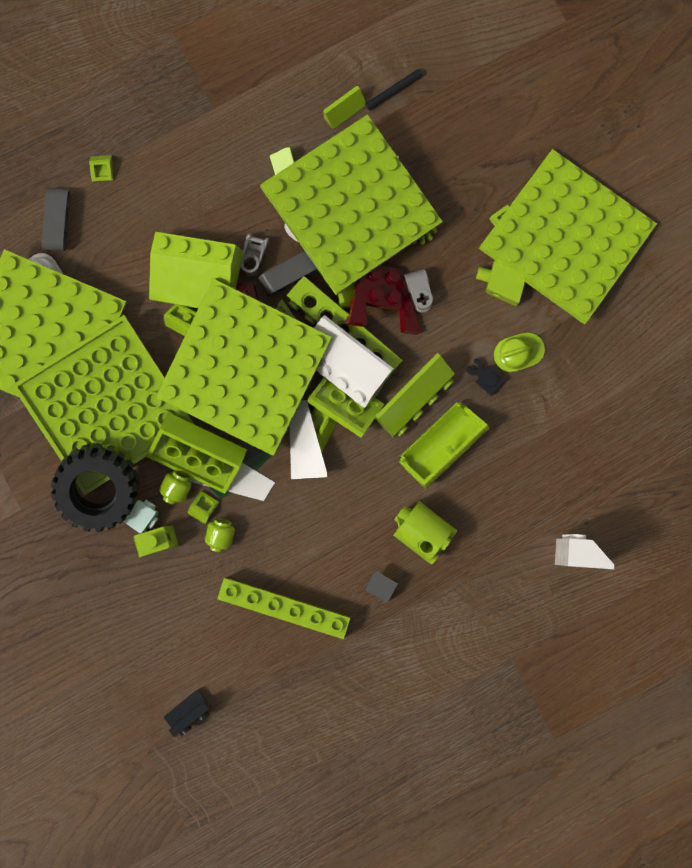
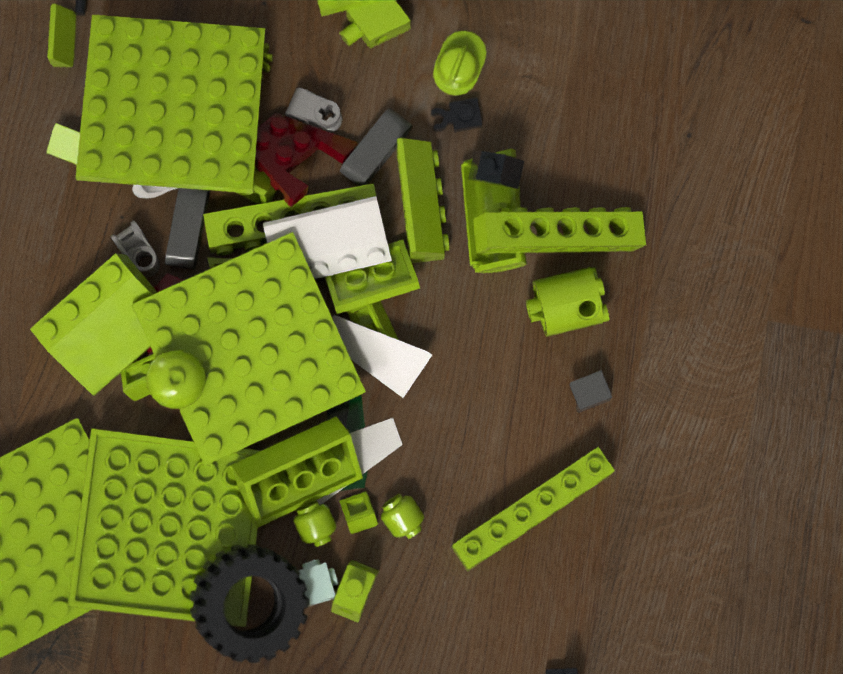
camera: 55 degrees left, 5 degrees down
(189, 340) = (176, 379): none -> lime cylinder
(426, 344) = (375, 148): none -> dark grey beam
(467, 426) = (496, 169): none -> black slope
(499, 529) = (492, 238): none -> lime brick
(579, 552) = (717, 157): white slope -> none

